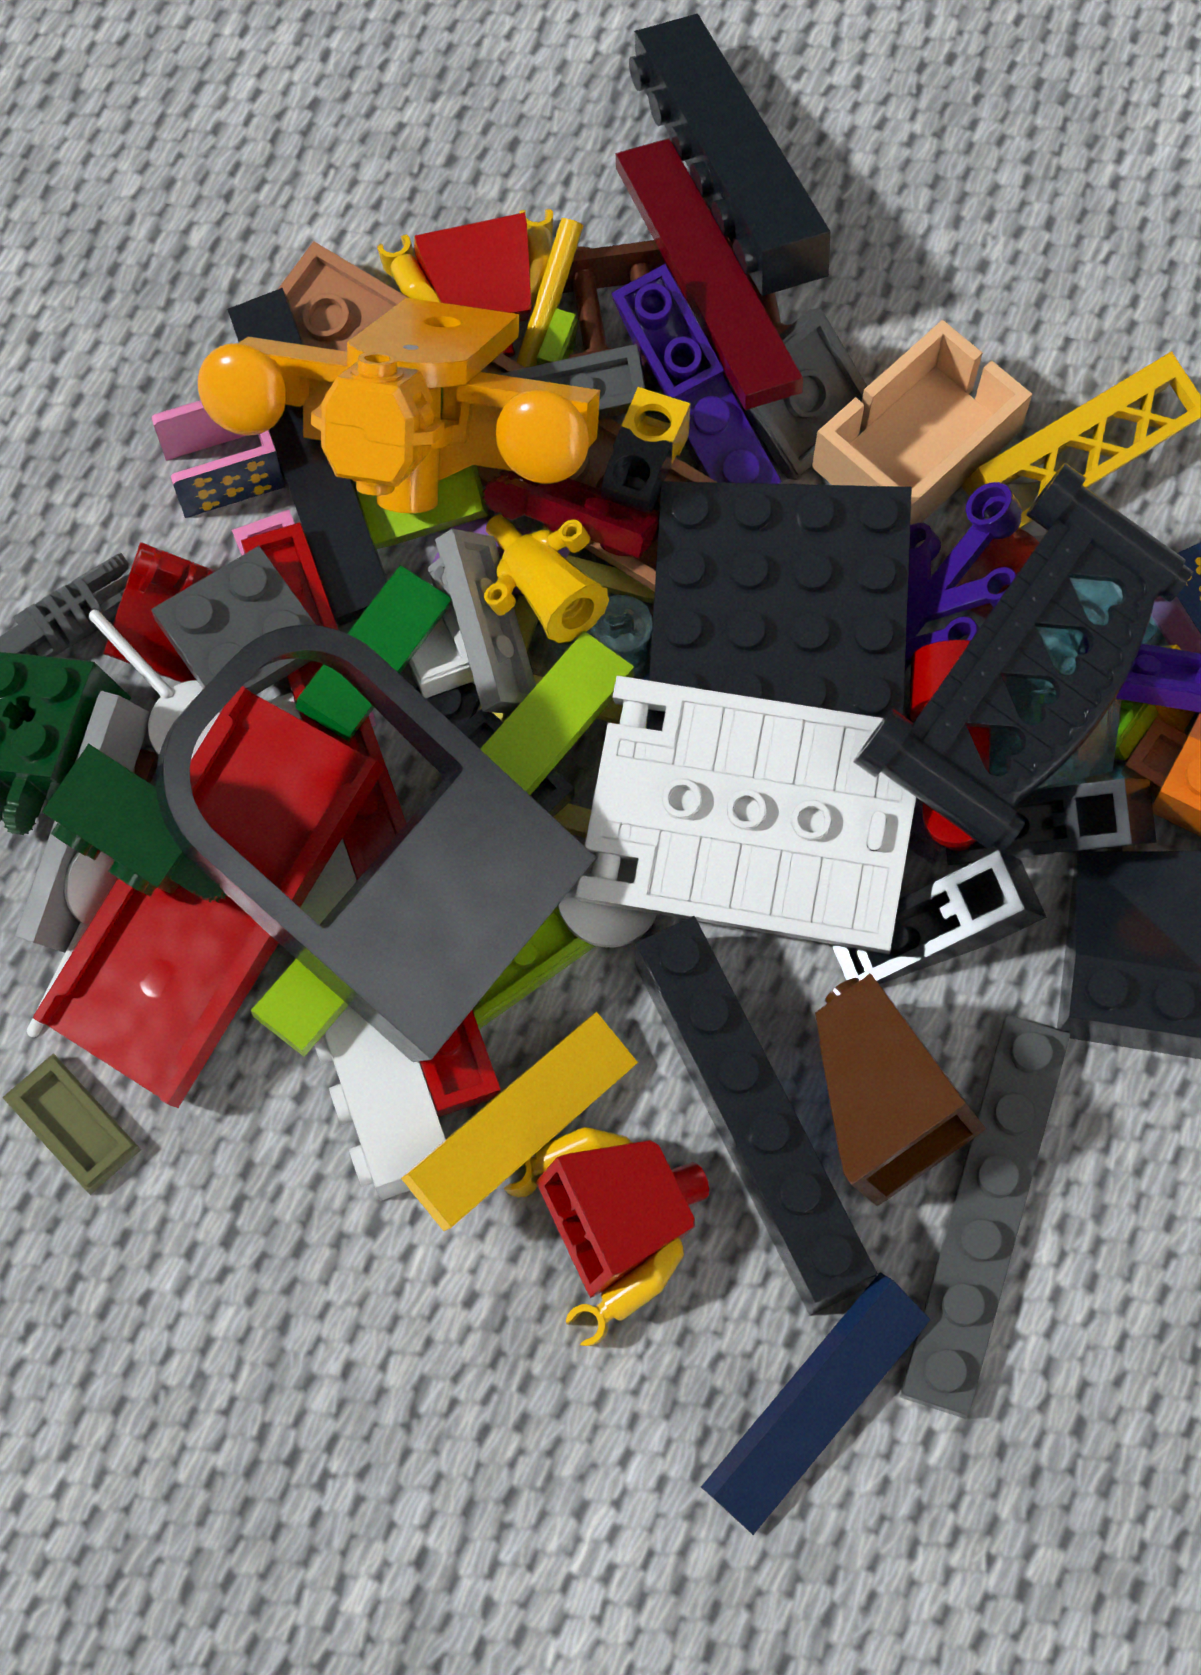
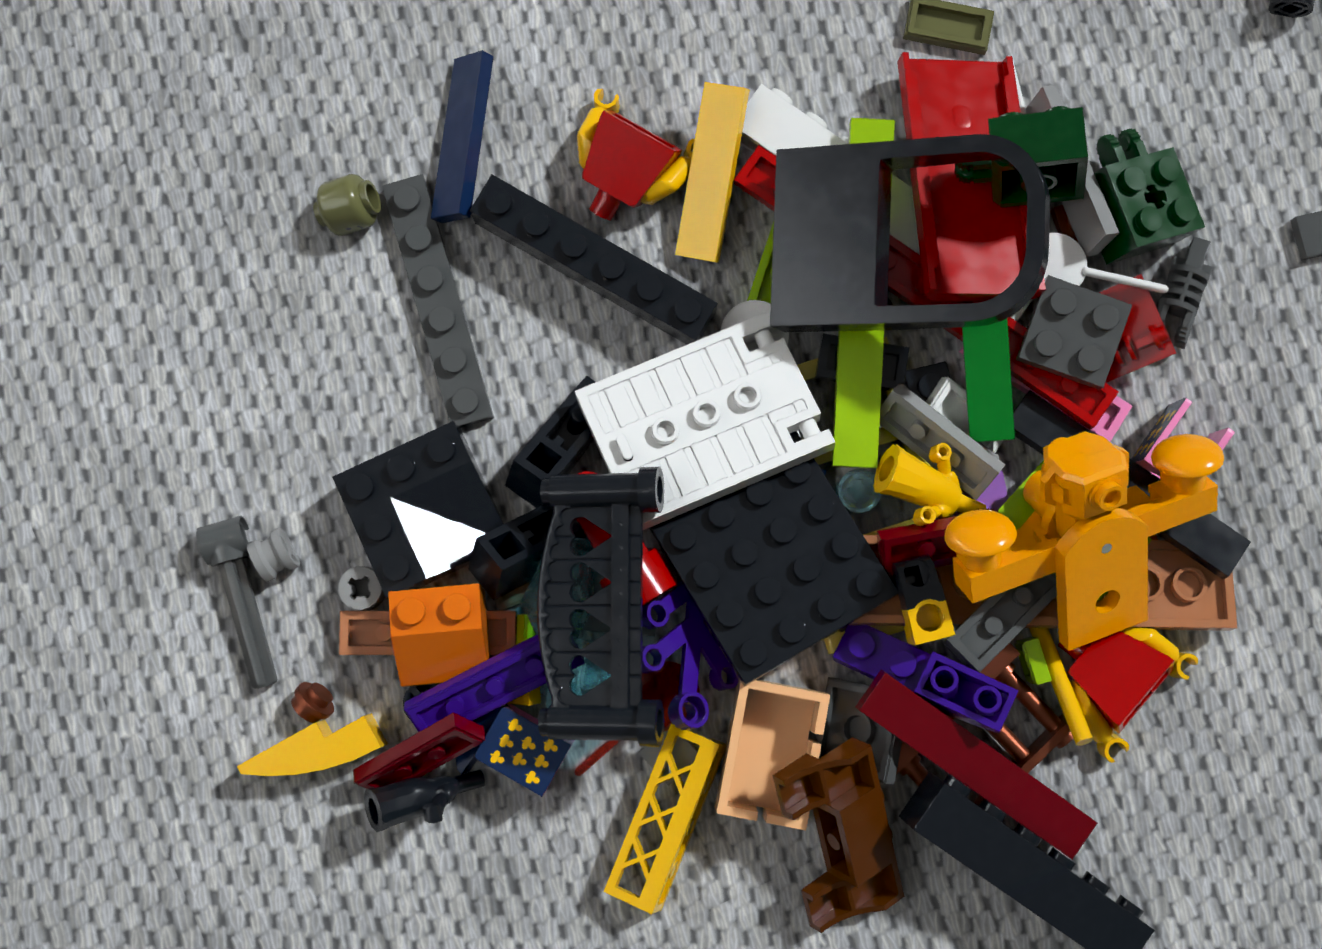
camera: 145 degrees right, 15 degrees up
(886, 1092) = (527, 314): reddish brown slope -> none
(890, 295) = (851, 830): none -> reddish brown bracket
(1034, 1417) = (347, 204): none -> olive head

